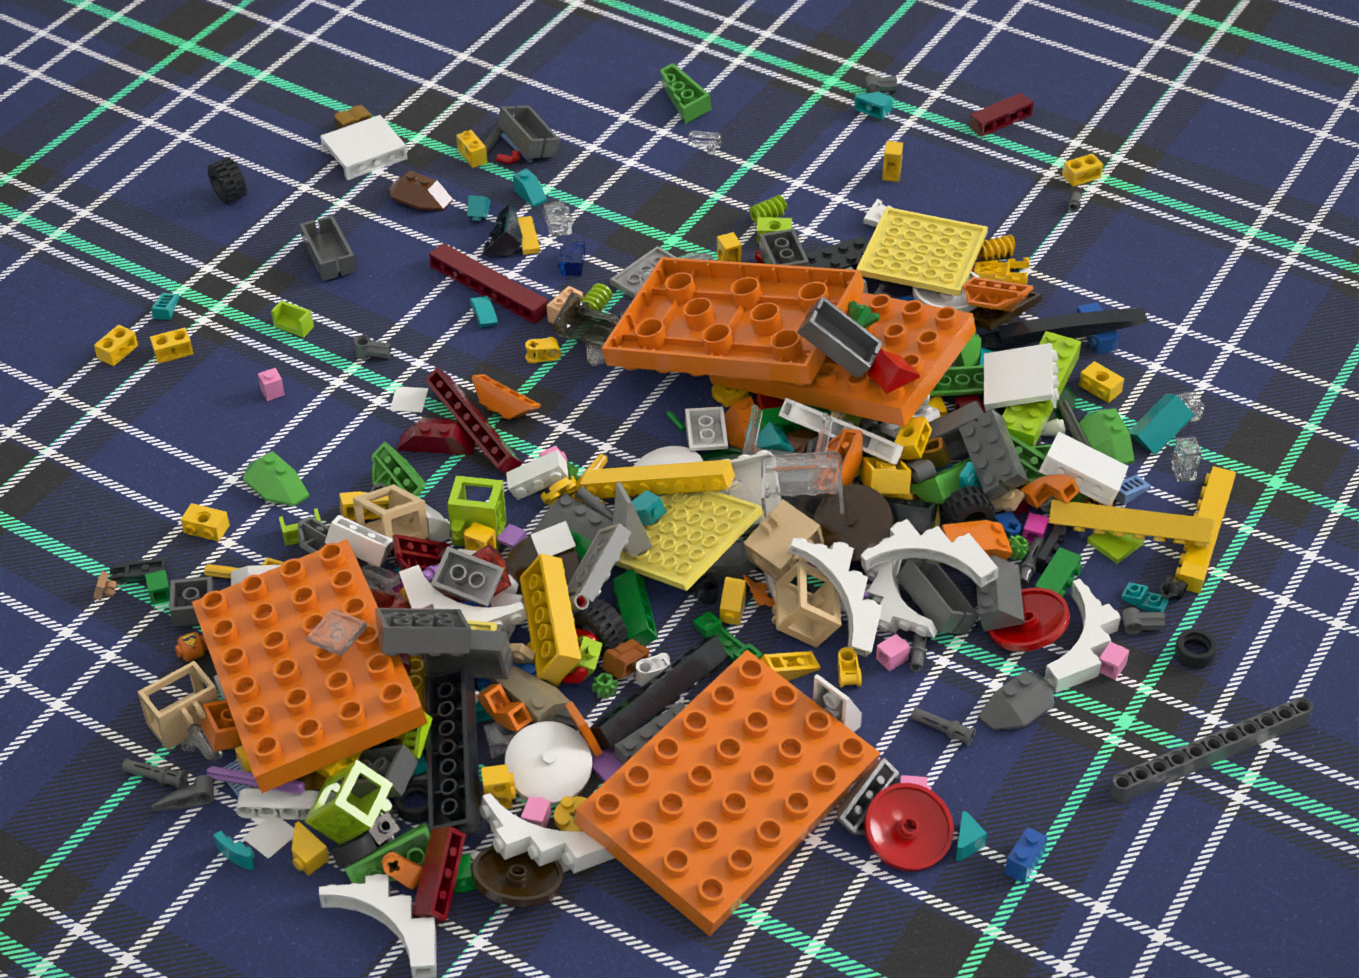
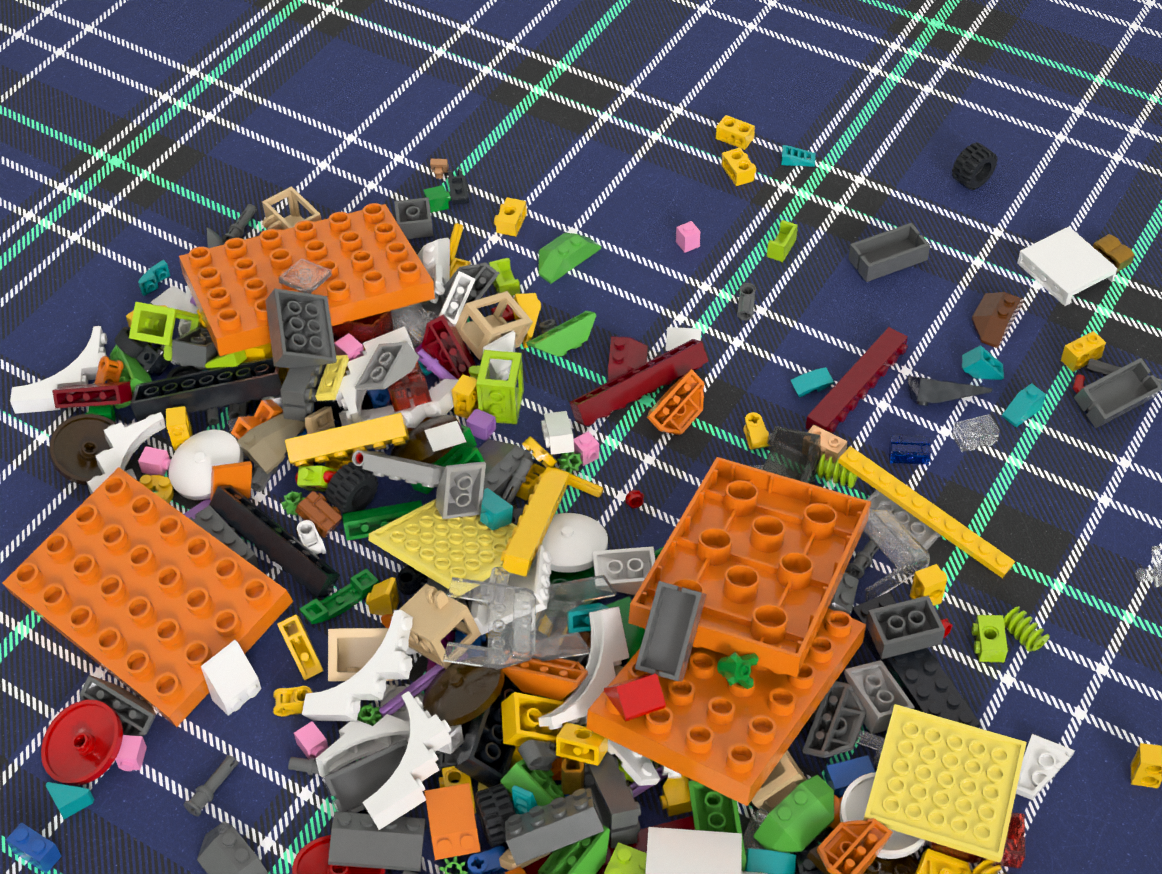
camera: 90 degrees right, 5 degrees up
(529, 241) = (947, 411): yellow tile -> none
(614, 433) = (634, 499): none -> red plate
(645, 251) = (926, 512): none -> yellow plate

